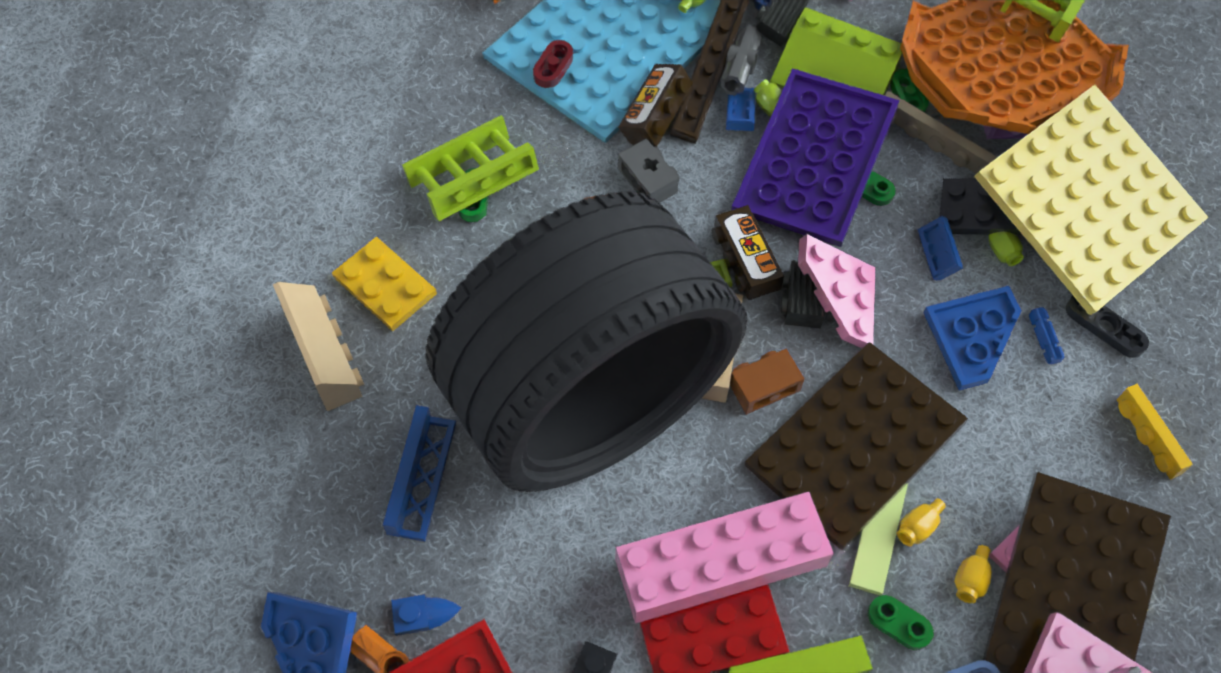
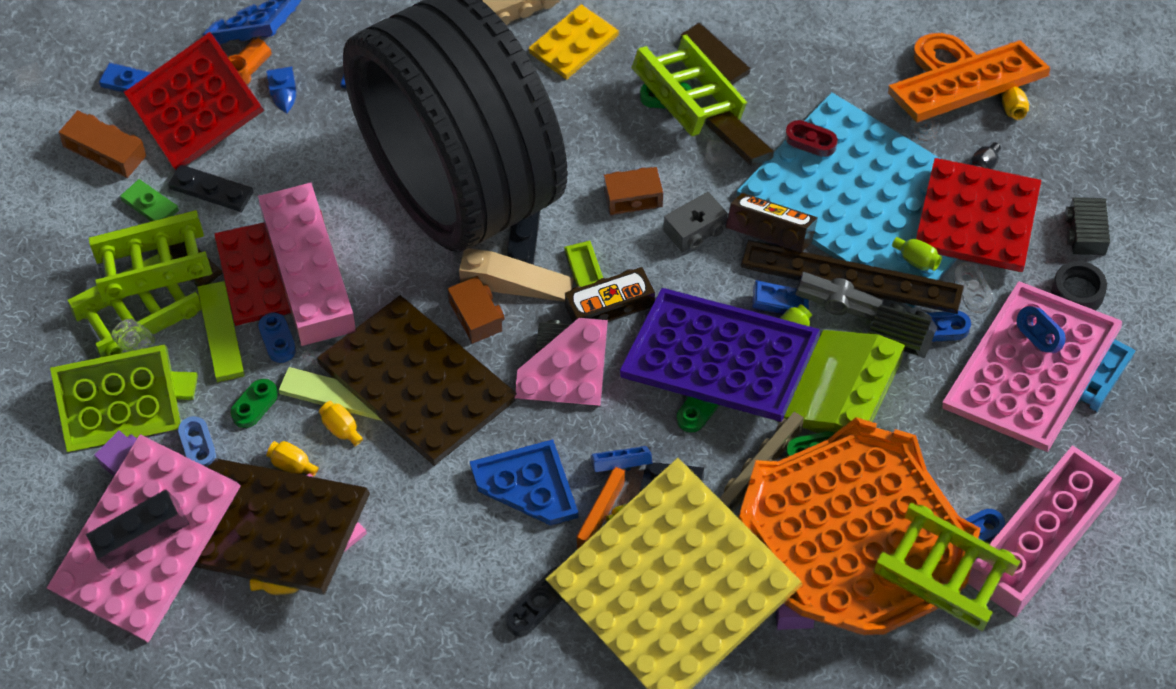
camera: 90 degrees right, 5 degrees down
(391, 162) = (719, 54): none -> dark brown tile
(546, 124) = (740, 138): none -> dark brown tile
(807, 599) = (275, 336): none -> blue plate
(1003, 267) = (602, 506): none -> orange tile
(1046, 335) = (528, 546): blue axle -> none
(1153, 432) = (420, 618): yellow plate -> none

